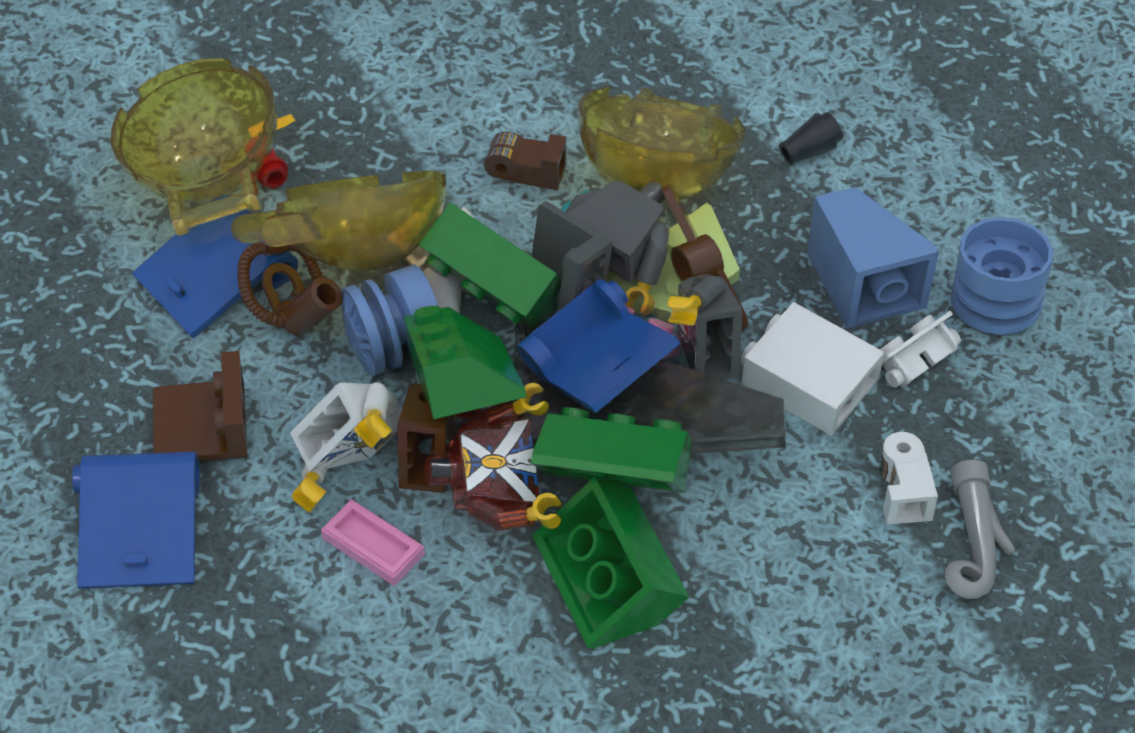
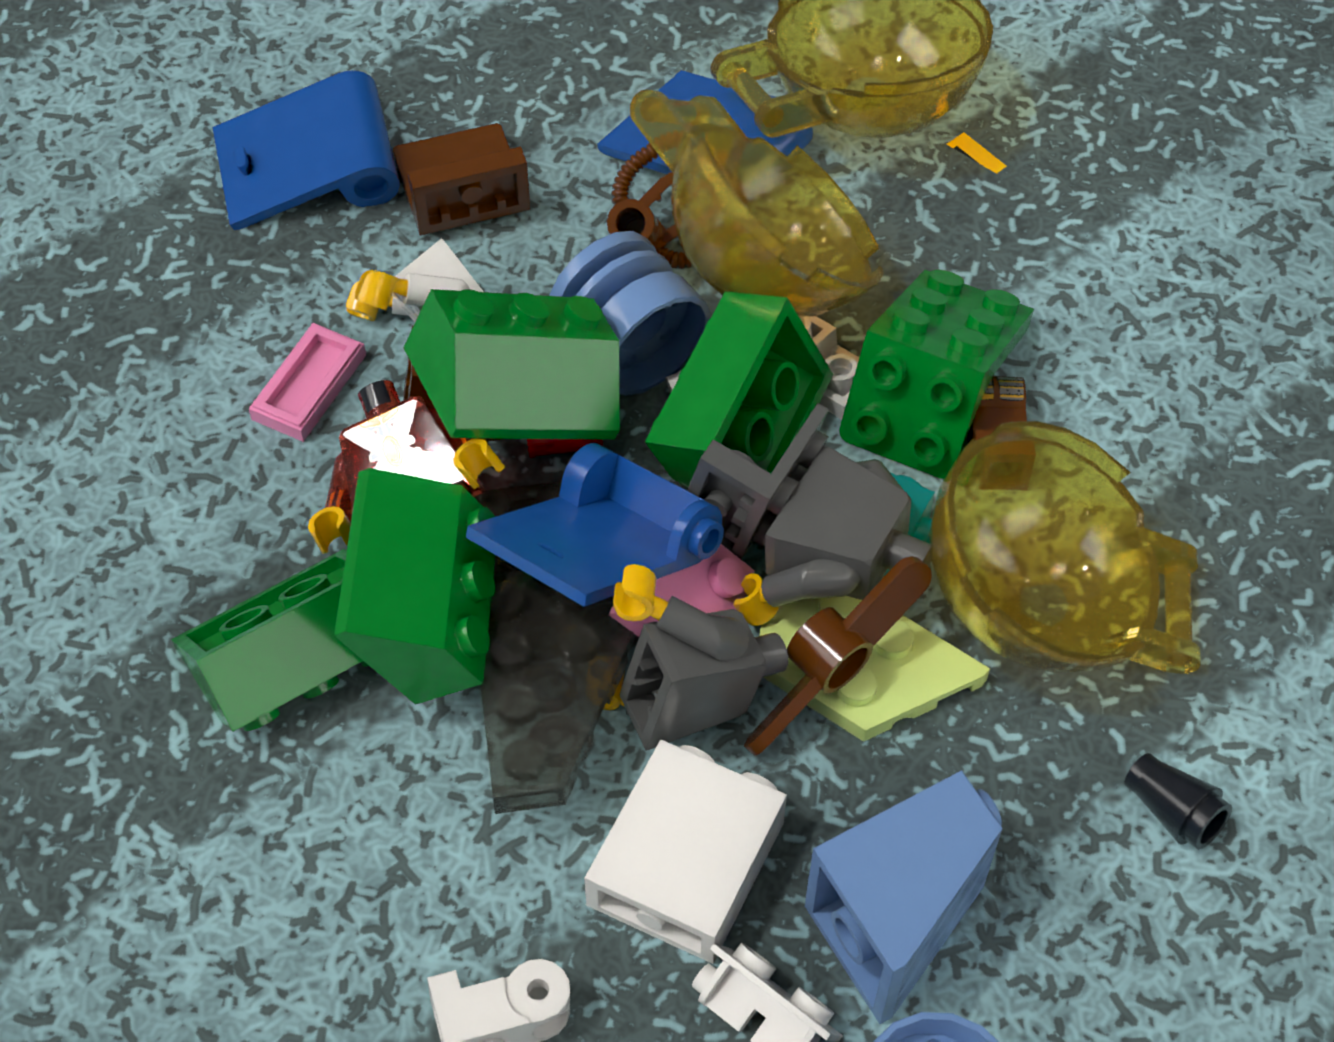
camera: 80 degrees right, 5 degrees up
(273, 171) = (886, 157): red pin -> none
(483, 166) = (929, 369): none -> green bracket

